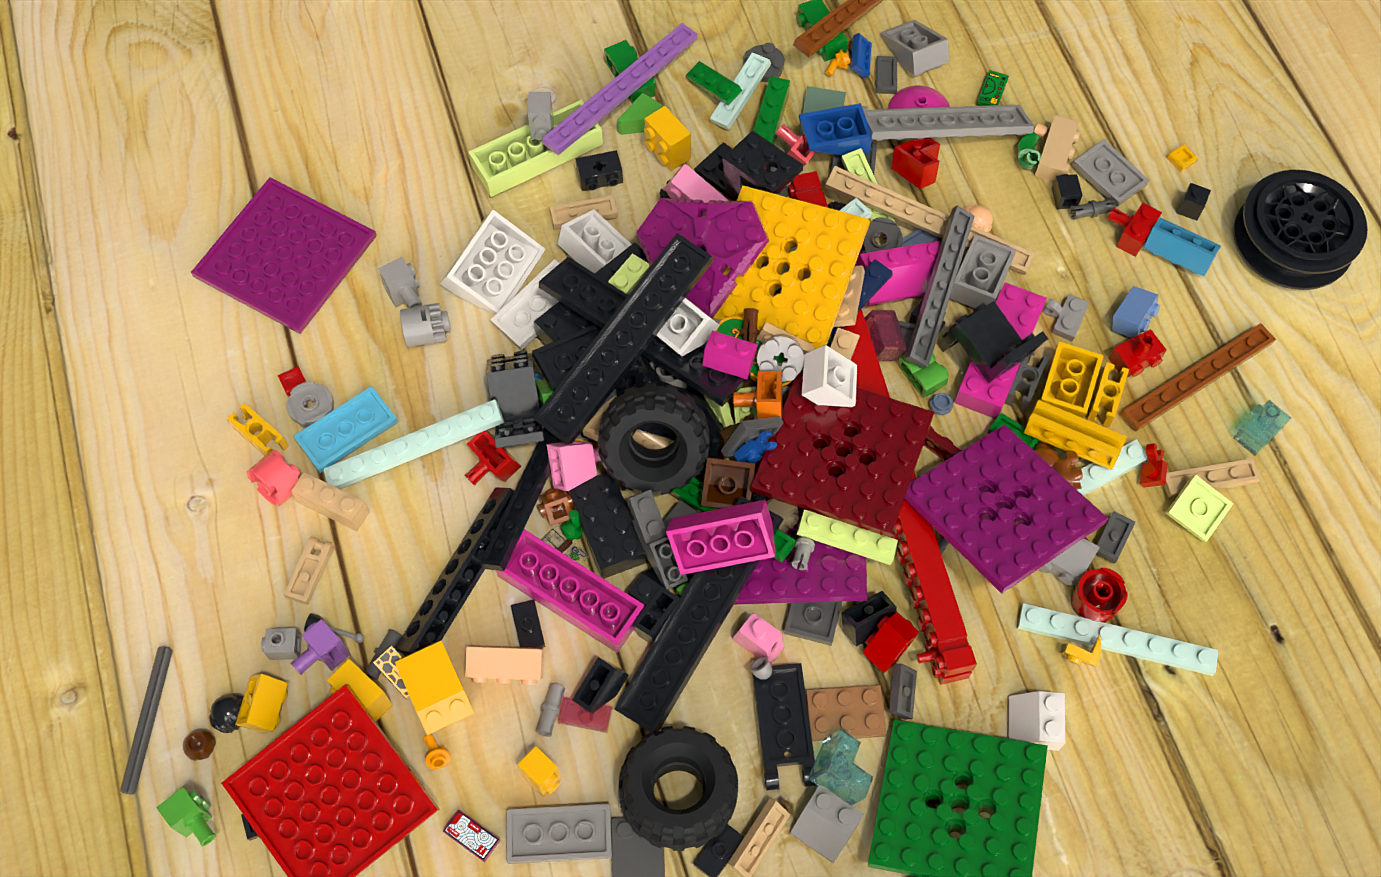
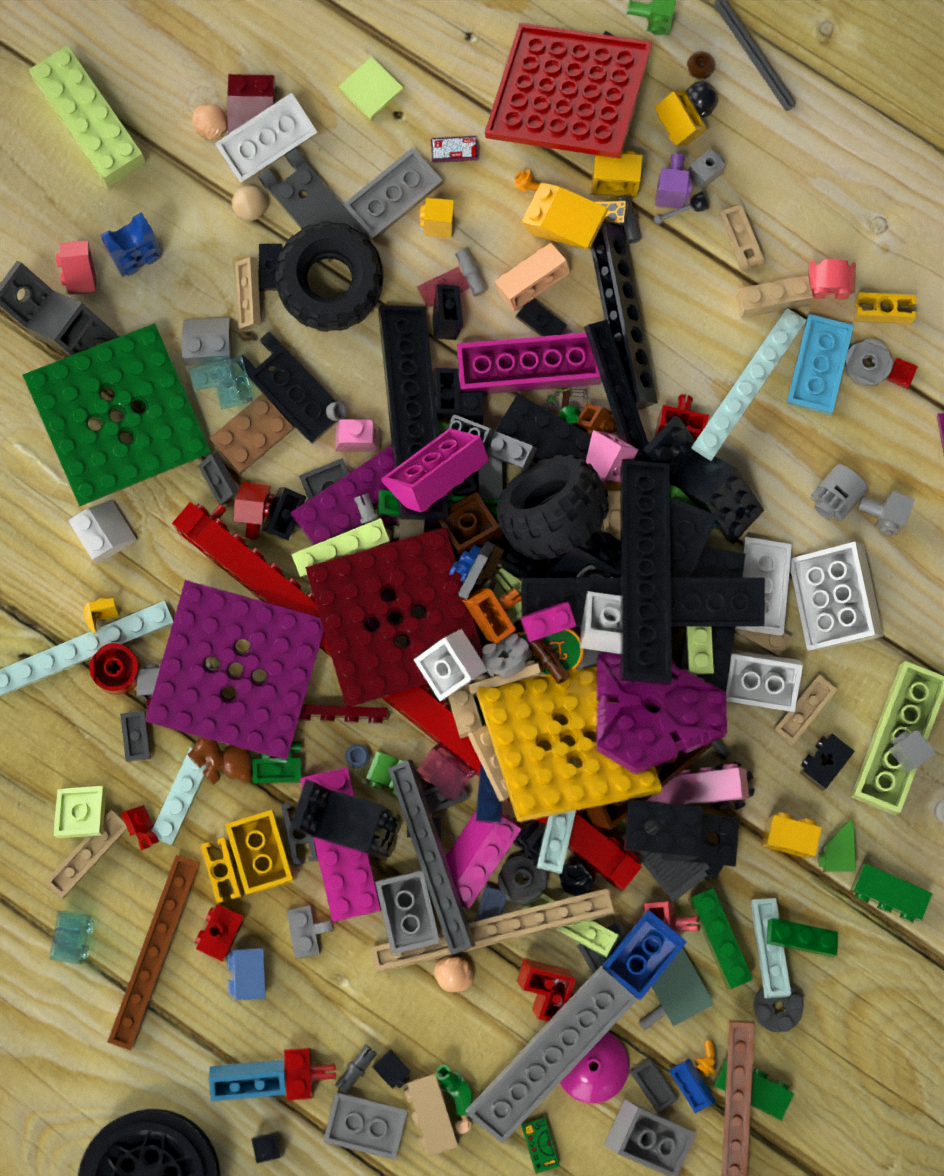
camera: 140 degrees right, 15 degrees up
(619, 89) = (874, 853): medium lavender plate -> none
(1075, 434) = (223, 799): yellow brick -> none

